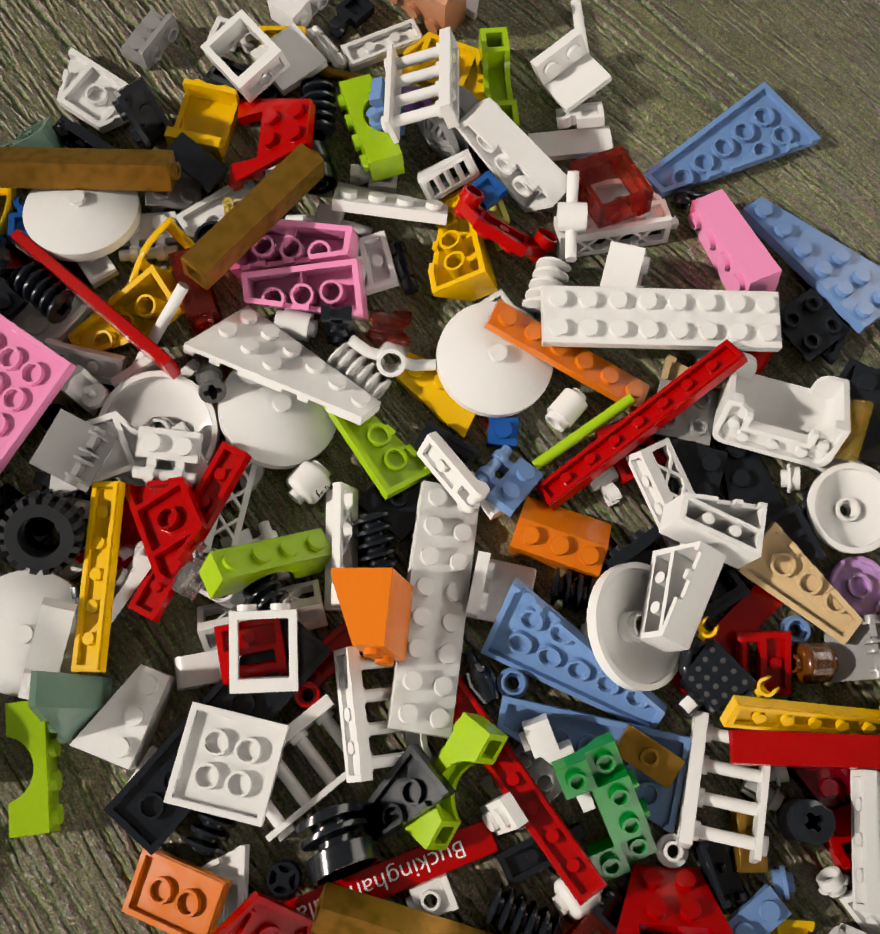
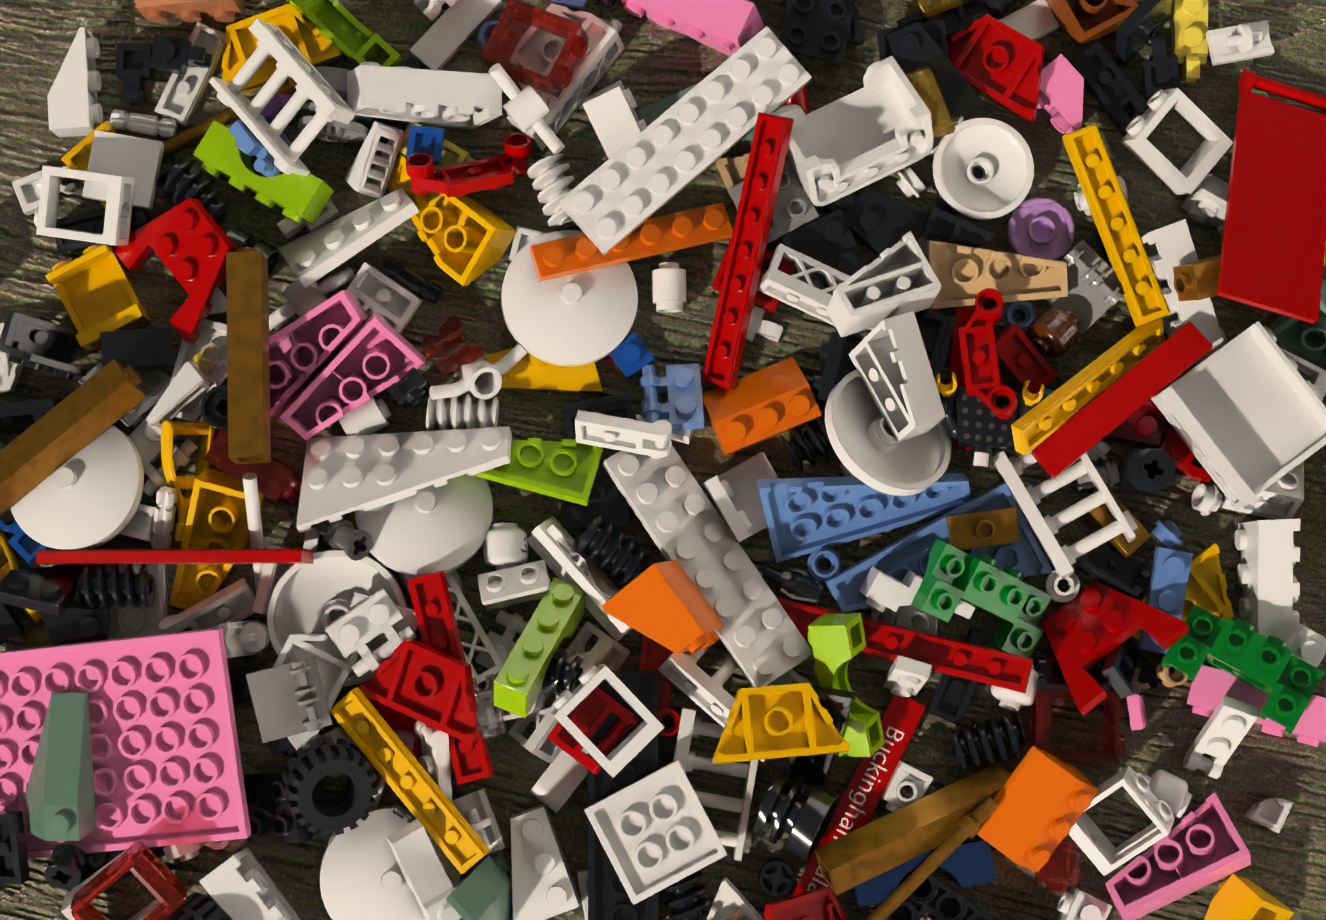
camera: 40 degrees left, 10 degrees up
(115, 277) = (164, 517): none -> white axle
(122, 648) = (479, 814): none -> white hips
(193, 209) = (181, 392): none -> white slope
(289, 509) = (514, 585): none -> white bracket
(379, 763) = (777, 724): none -> yellow wing
(383, 22) = (175, 54): none -> black plate
(583, 432) = (701, 296): lime bar -> none
(747, 632) = (981, 356): none -> red plate

